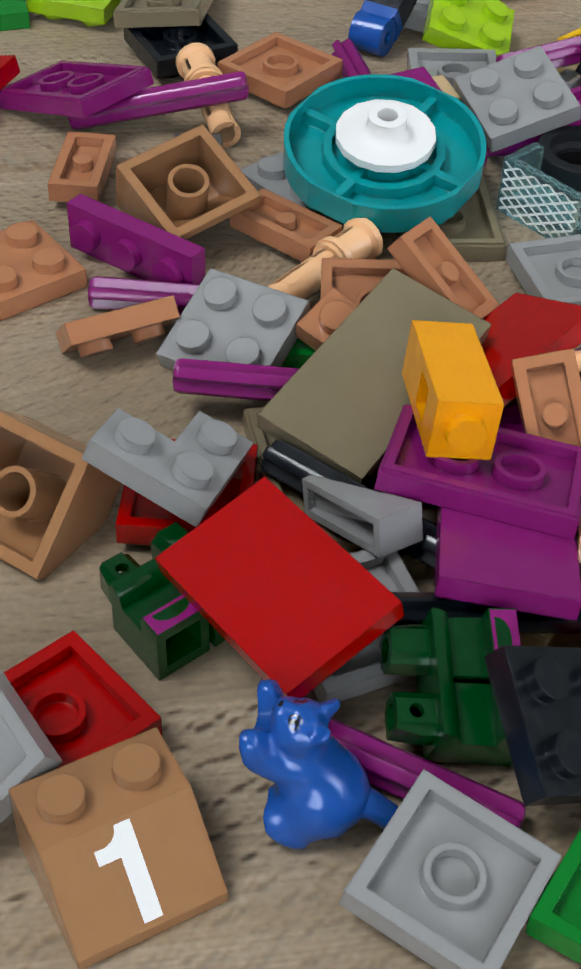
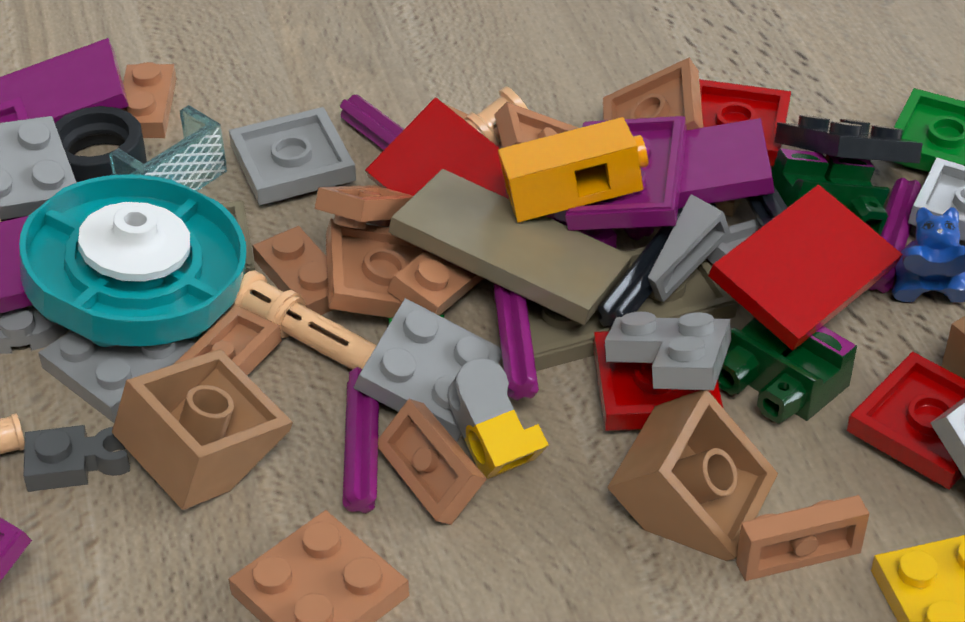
camera: 95 degrees left, 0 degrees up
(82, 166) = (105, 552): nougat plate -> none
(132, 243) = (284, 470): magenta plate -> none
(140, 350) = (489, 419): none -> leg

